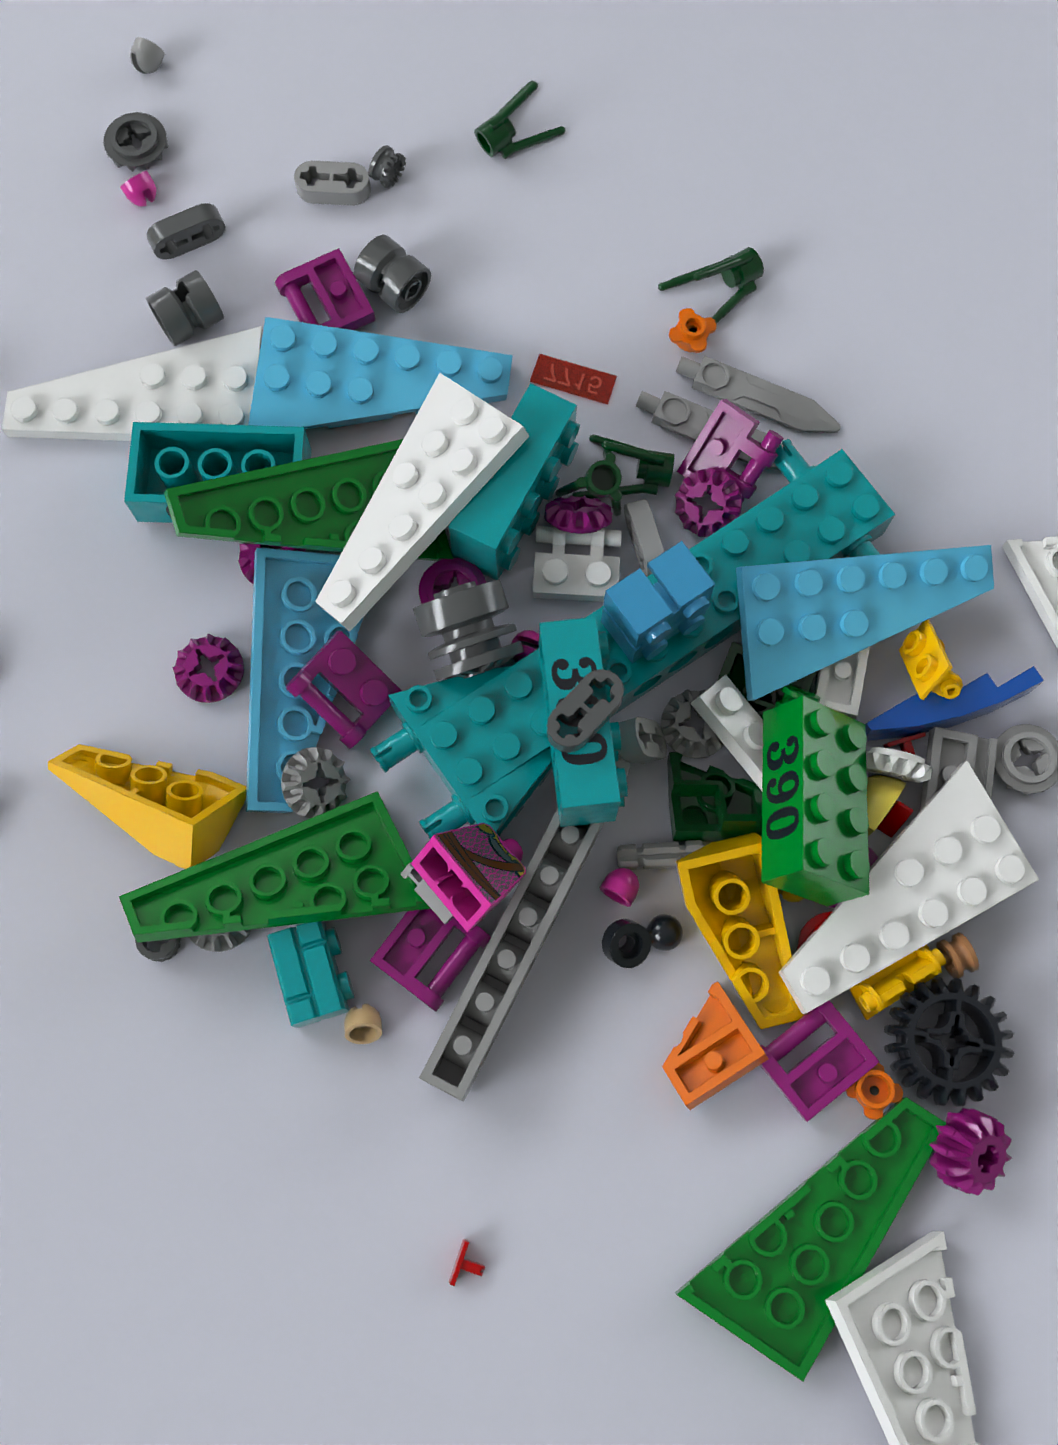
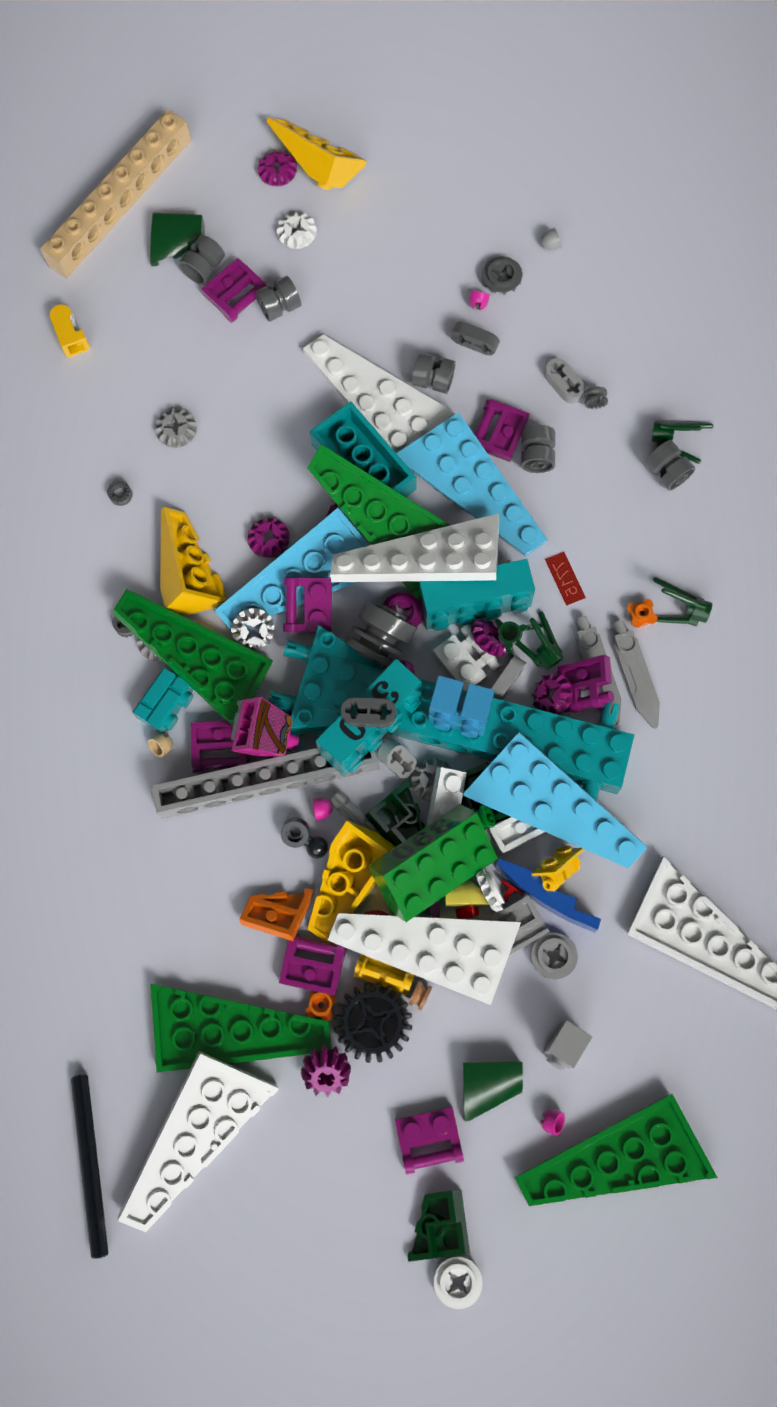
camera: 55 degrees right, 0 degrees up
(465, 1264) = (91, 880): red piece -> none
(544, 156) = (670, 465): none -> dark grey wheel

